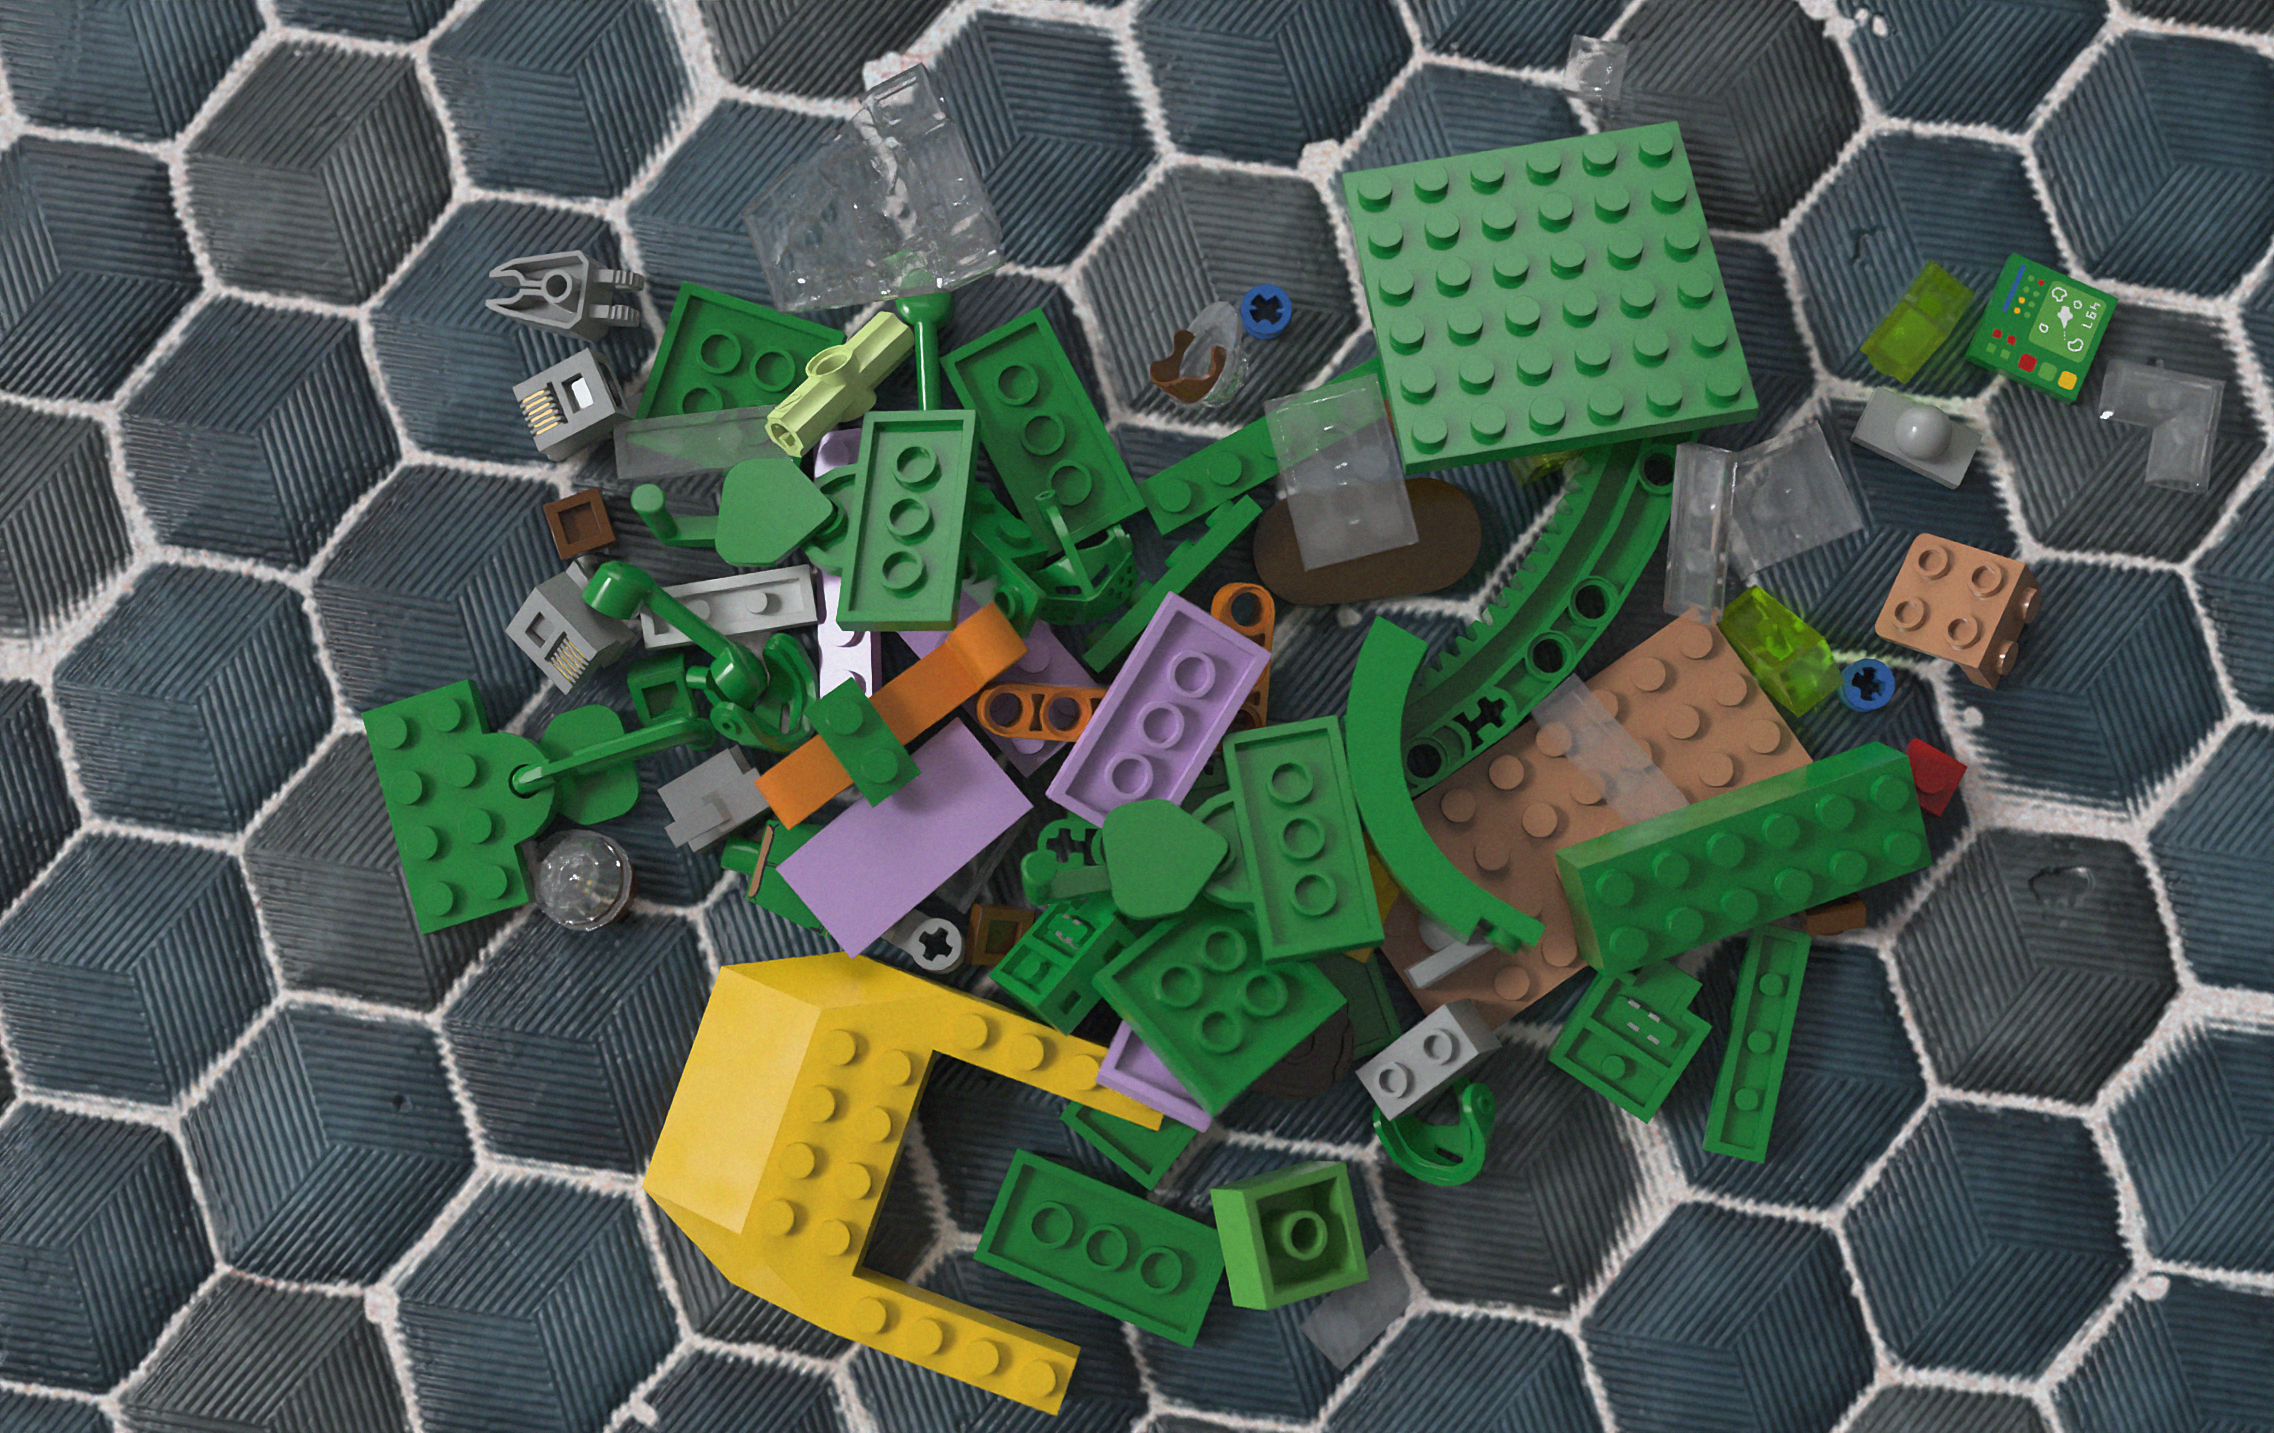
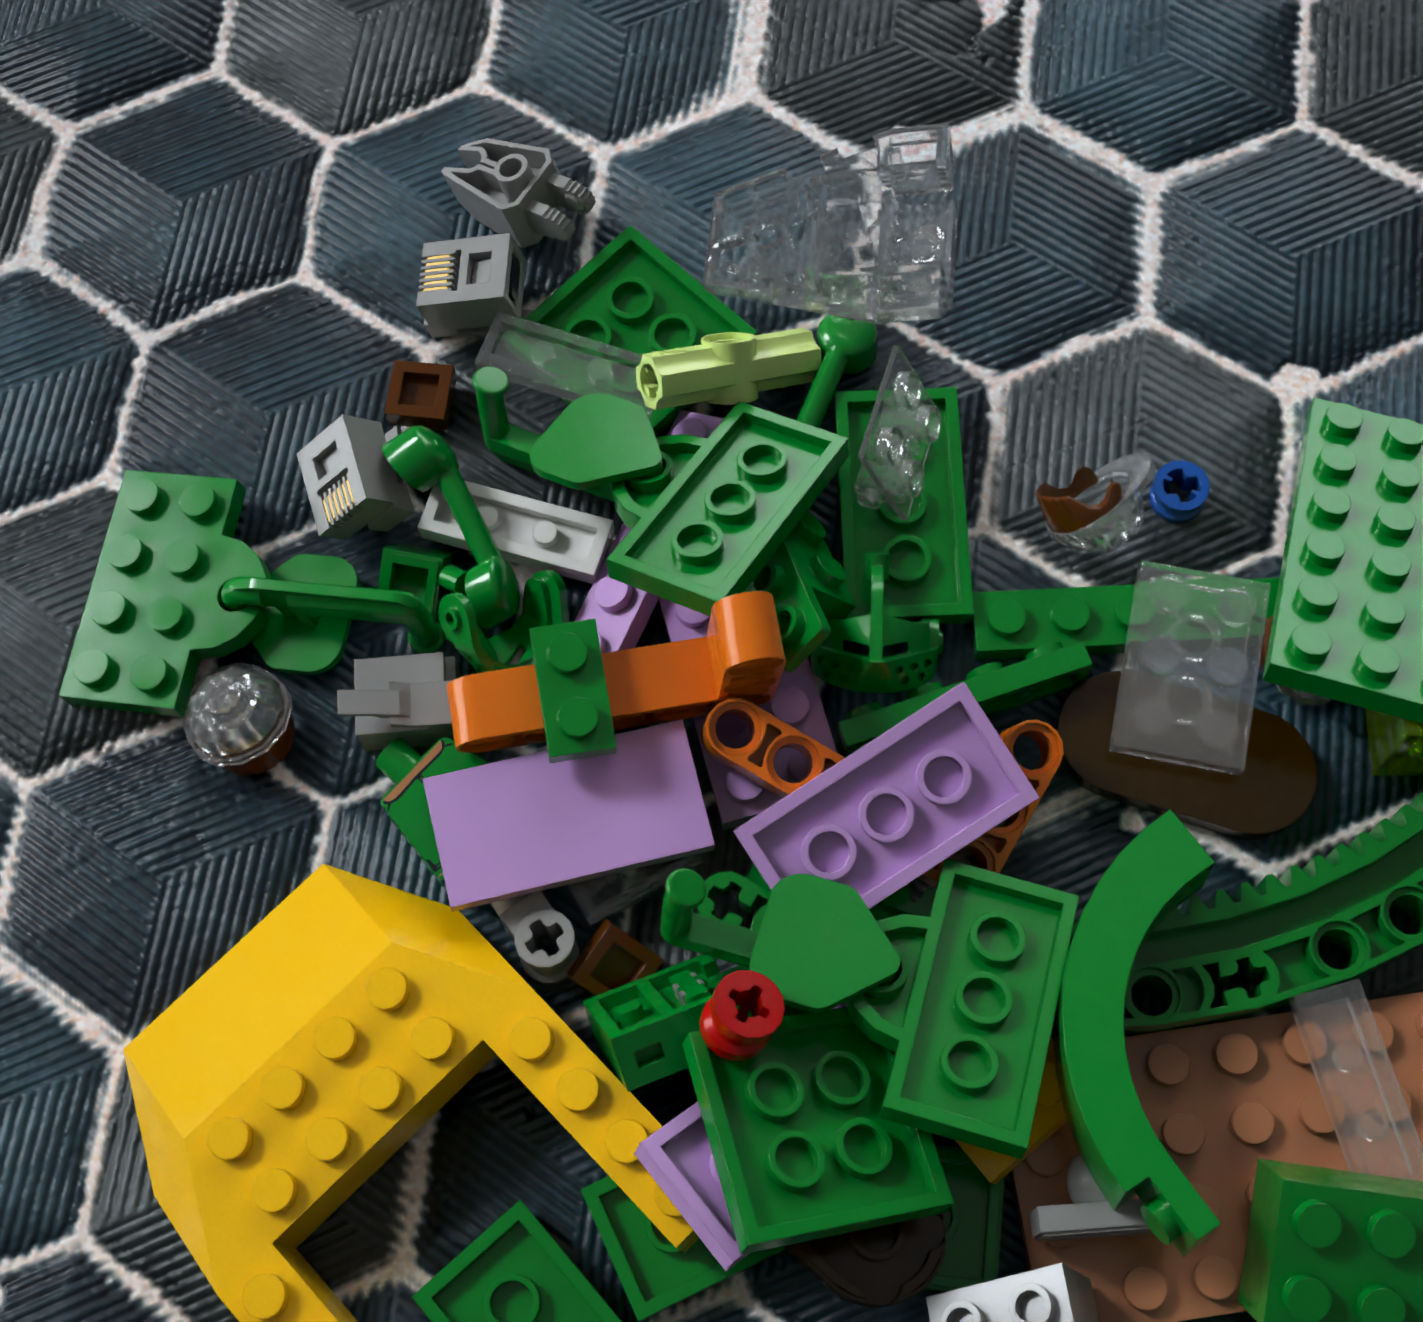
camera: 30 degrees right, 15 degrees down
(1018, 389) = (897, 439): none -> clear hinge
(1123, 957) = (729, 1029): none -> red wheel

